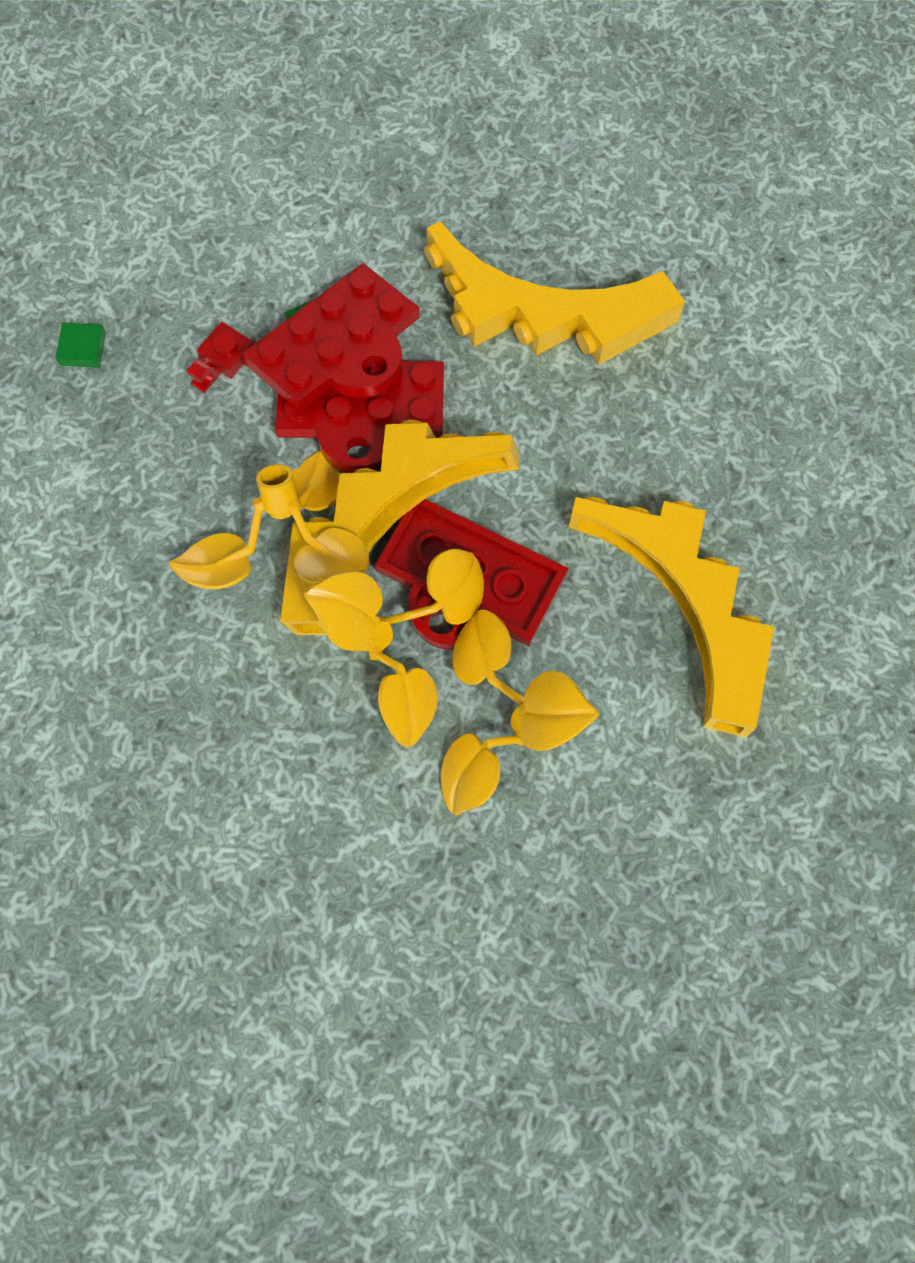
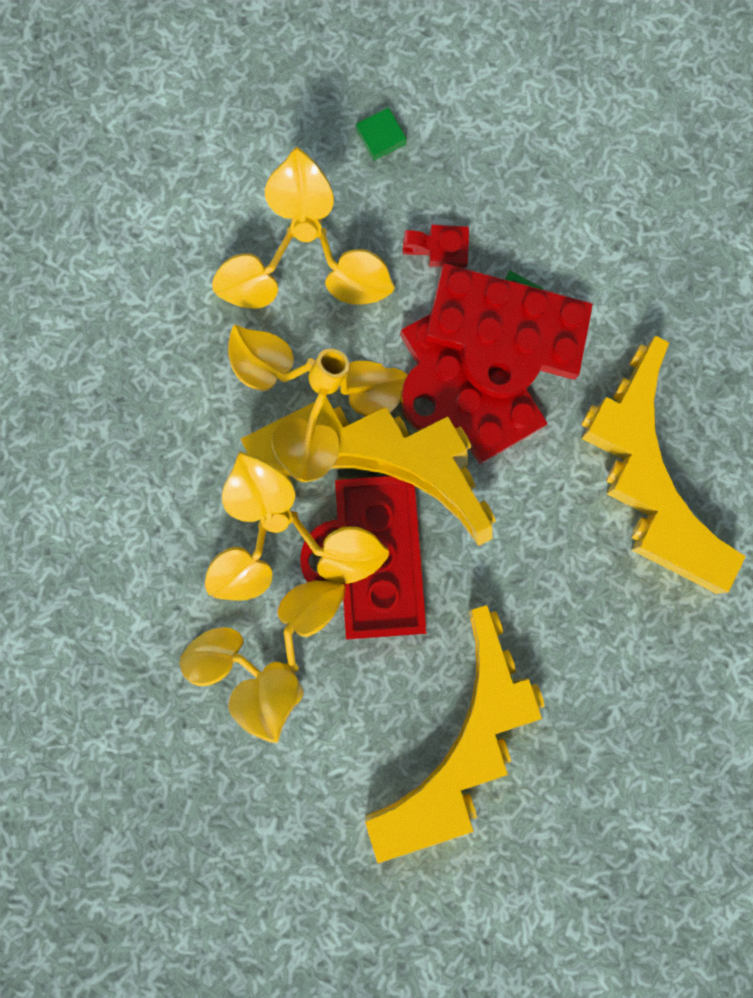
camera: 60 degrees right, 10 degrees up
(89, 420) = (305, 196): none -> yellow plant

